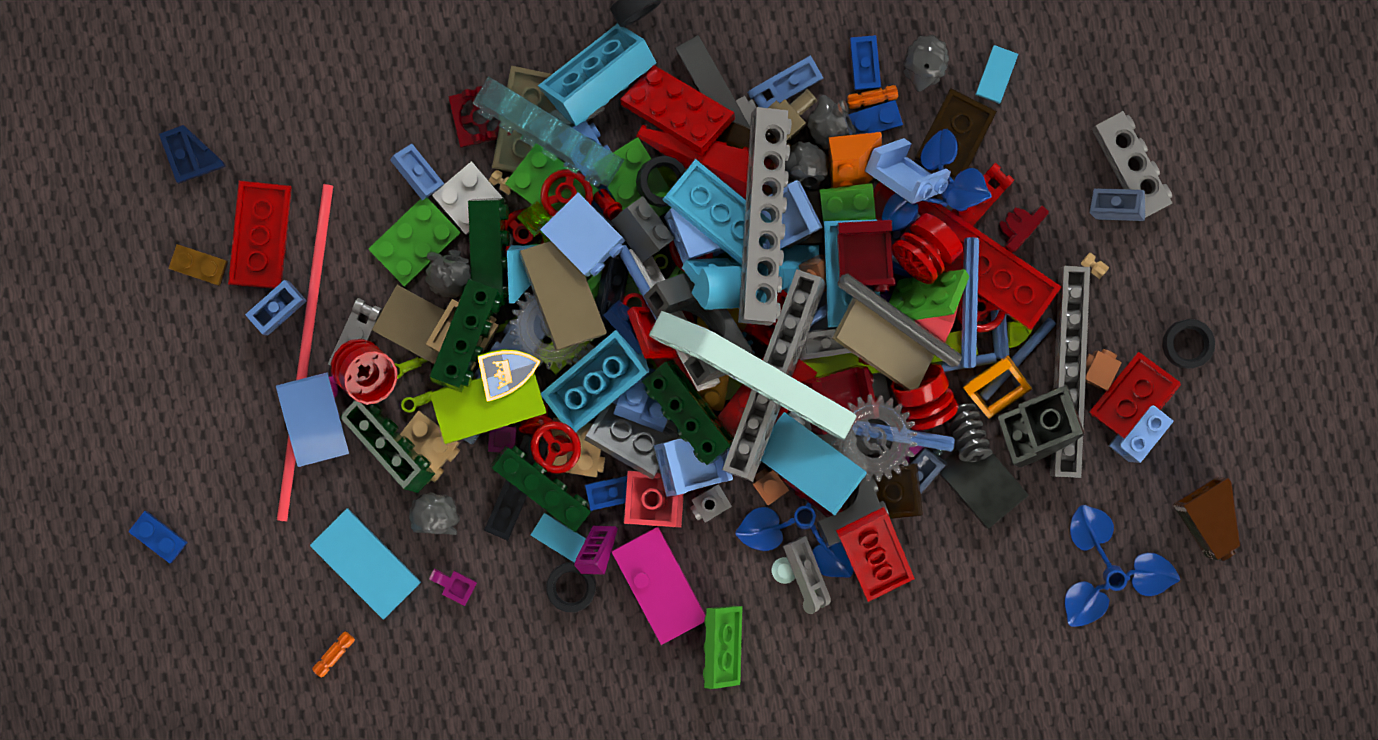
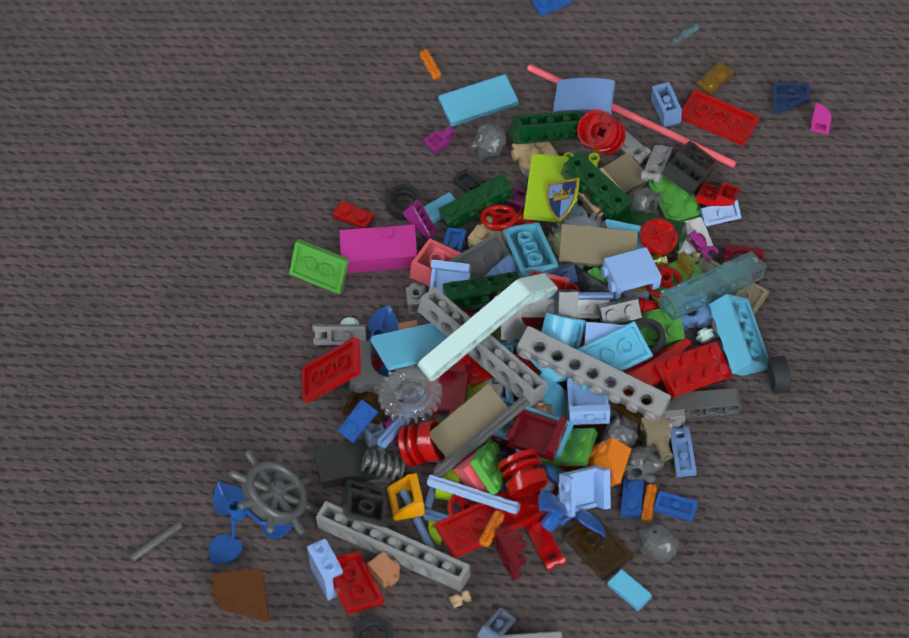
camera: 125 degrees right, 30 degrees down
(138, 333) = (685, 34): none -> clear light blue piece
(211, 98) = (821, 119): none -> dark pink brick
(365, 235) = (690, 167): none -> pearl dark grey slope
(374, 282) = (657, 162): none -> light grey plate
(394, 183) = (717, 196): none -> red slope
(482, 177) = (699, 243): none -> magenta plate
(512, 223) = (658, 236): none -> red tile
(532, 176) = (685, 264): none -> clear orange tile
(610, 120) = (705, 335): none -> light aqua plate
(617, 644) = (353, 215): none -> red plate
(930, 488) = (357, 421): none -> blue plate
(1008, 259) = (489, 531): none -> orange axle
(1072, 543) = (274, 492): none -> dark grey piece
(1177, 661) = (156, 541): none -> dark grey bar

